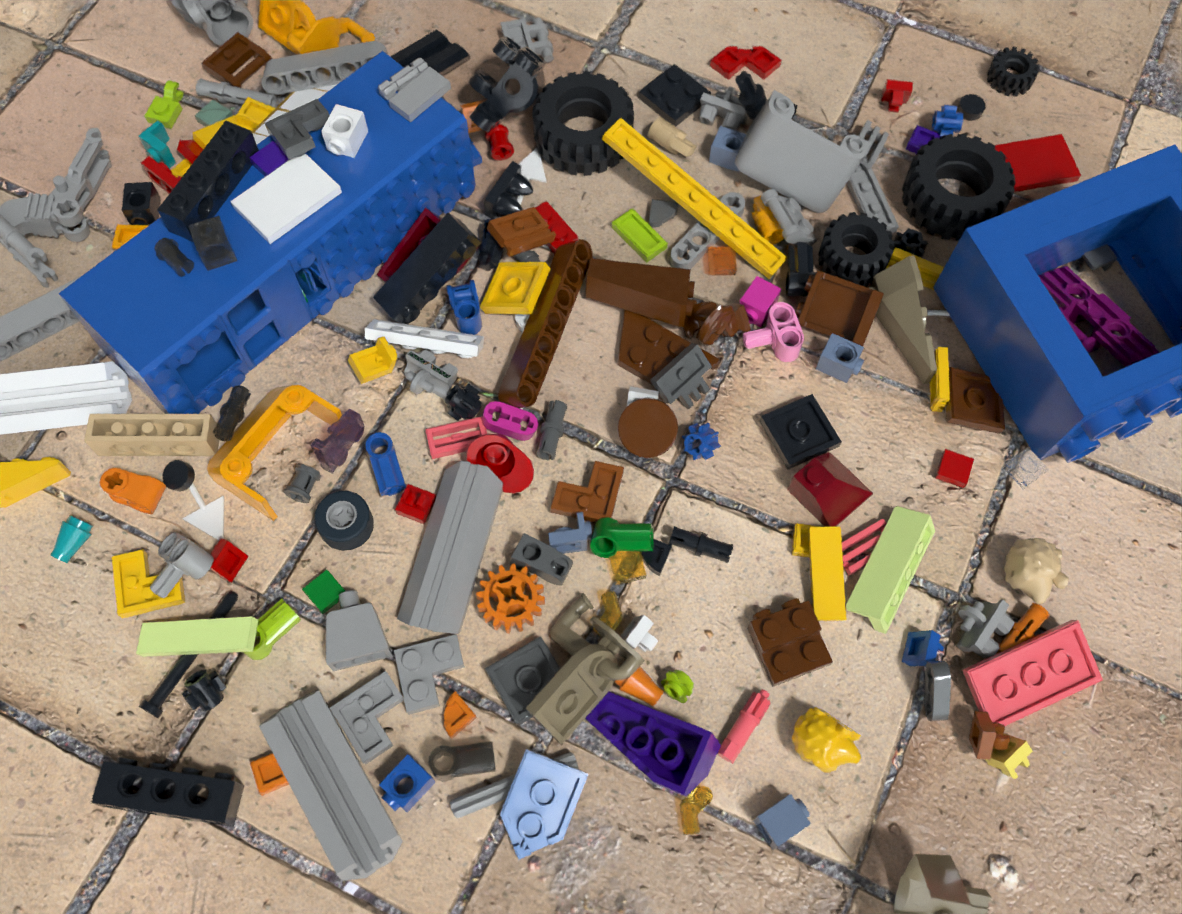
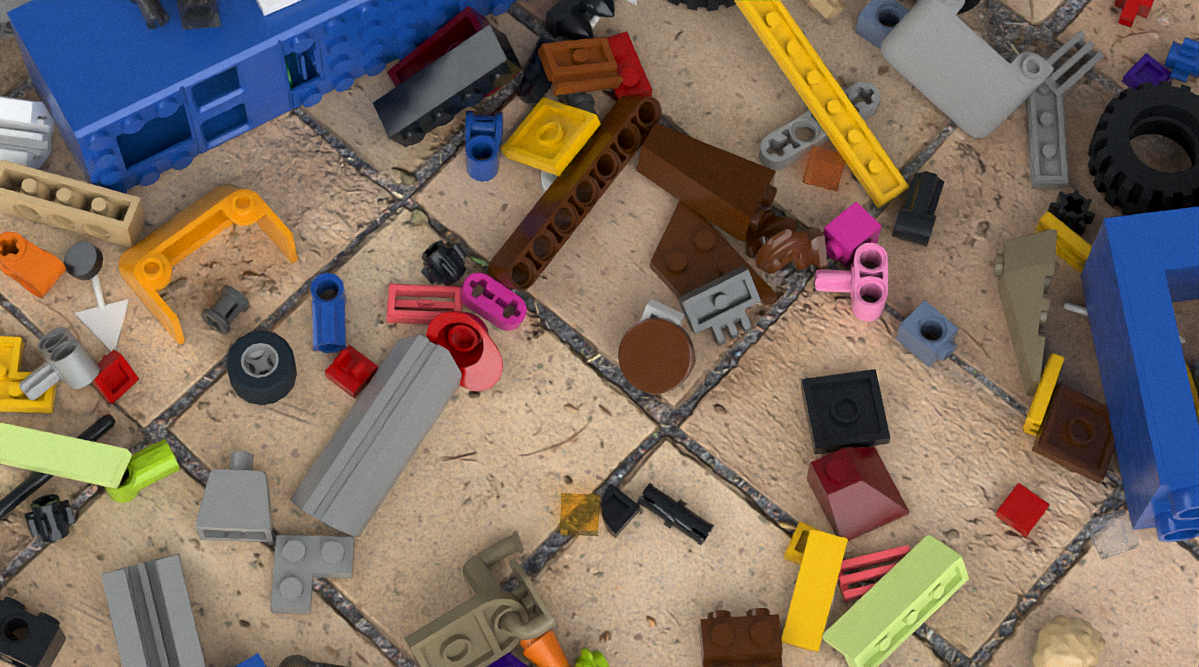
camera: 15 degrees right, 0 degrees up
(232, 413) = (165, 201): clear smoke pin -> none
(268, 774) = (97, 633): orange tile -> none
(324, 591) = (215, 444): green tile -> none
(335, 448) = (289, 264): clear purple wing -> none
(359, 716) = (217, 595): light grey plate -> none
(373, 361) = (351, 183): yellow bracket -> none
(416, 337) = (420, 169): white plate -> none
(428, 376) = (410, 219): light grey hips -> none
(457, 715) = (327, 629): orange tile -> none
(500, 591) = (429, 496): orange gear -> none
(522, 677) = (413, 603): dark grey plate -> none
(541, 560) = (478, 479): dark grey leg -> none
(552, 430) = (541, 326): dark grey pin -> none
(570, 540) = (519, 465): sand blue bracket -> none
(596, 500) = (566, 427): dark orange plate -> none
(612, 536) = (571, 474): green piece -> none
(612, 614) = (544, 566): clear yellow arm -> none
(637, 634) = (563, 597): white tile -> none
(639, 235) = (731, 107): lime tile -> none
(662, 212) = (769, 84): dark grey tile -> none
(701, 441) = (717, 390): blue gear -> none
(766, 222) = (900, 133): light orange hinge -> none
(790, 219) = (927, 137): light grey plate -> none
(838, 307) = (946, 270): reddish brown panel -> none
(861, 233) = (1003, 176): black tyre -> none

